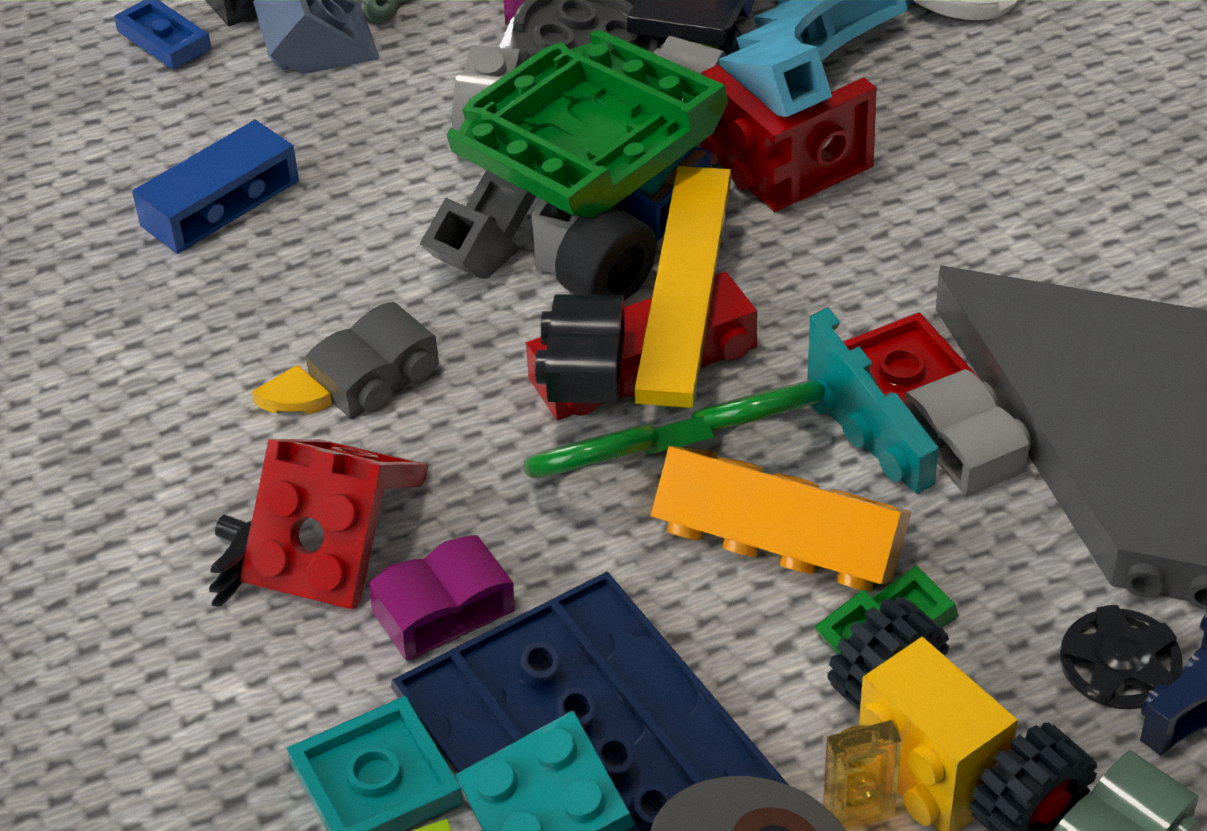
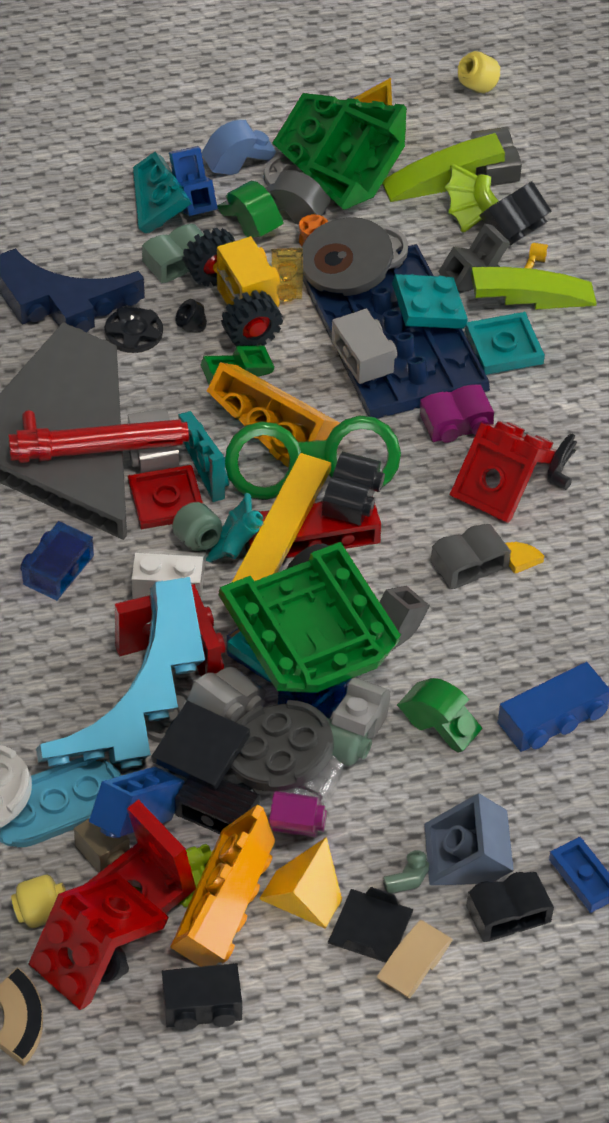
camera: 170 degrees left, 5 degrees up
(384, 134) = (443, 707): none -> green brick
(648, 637) = (363, 345): none -> light grey brick
(758, 288) = (237, 530): none -> teal arm
(819, 287) = (197, 526): none -> sand green head
(839, 242) = (164, 565): none -> white slope
(1014, 225) = (57, 560): none -> clear blue brick
(1023, 689) = (191, 316): none -> black tile
(1122, 318) = (45, 444): none -> red cylinder

